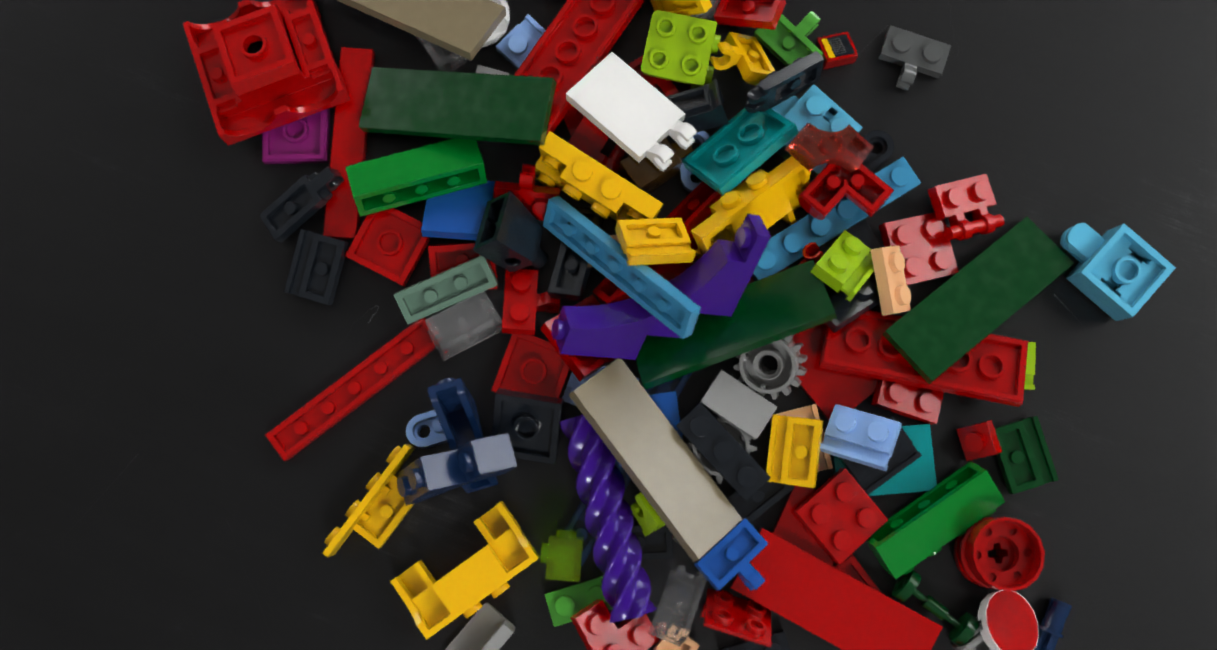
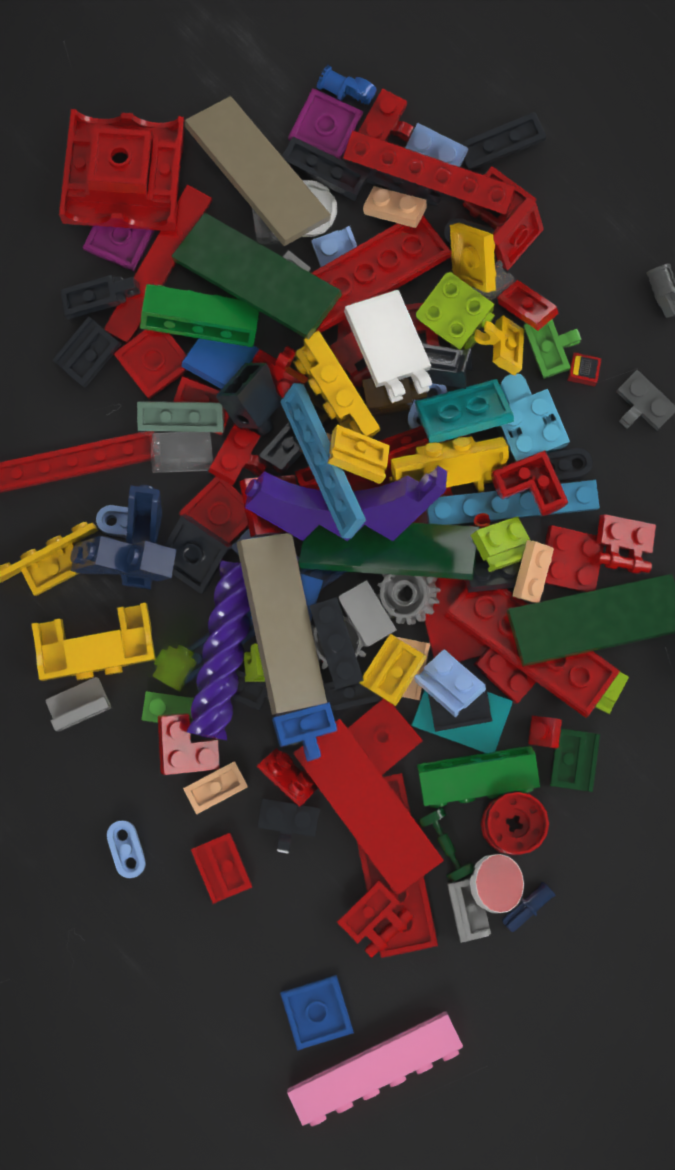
camera: 25 degrees right, 0 degrees up
(678, 606) = (245, 747): clear hinge -> none
(785, 83) = (523, 378): black hinge -> none
(818, 147) = (522, 440): clear red tile -> none
(840, 515) = (406, 738): red plate -> none

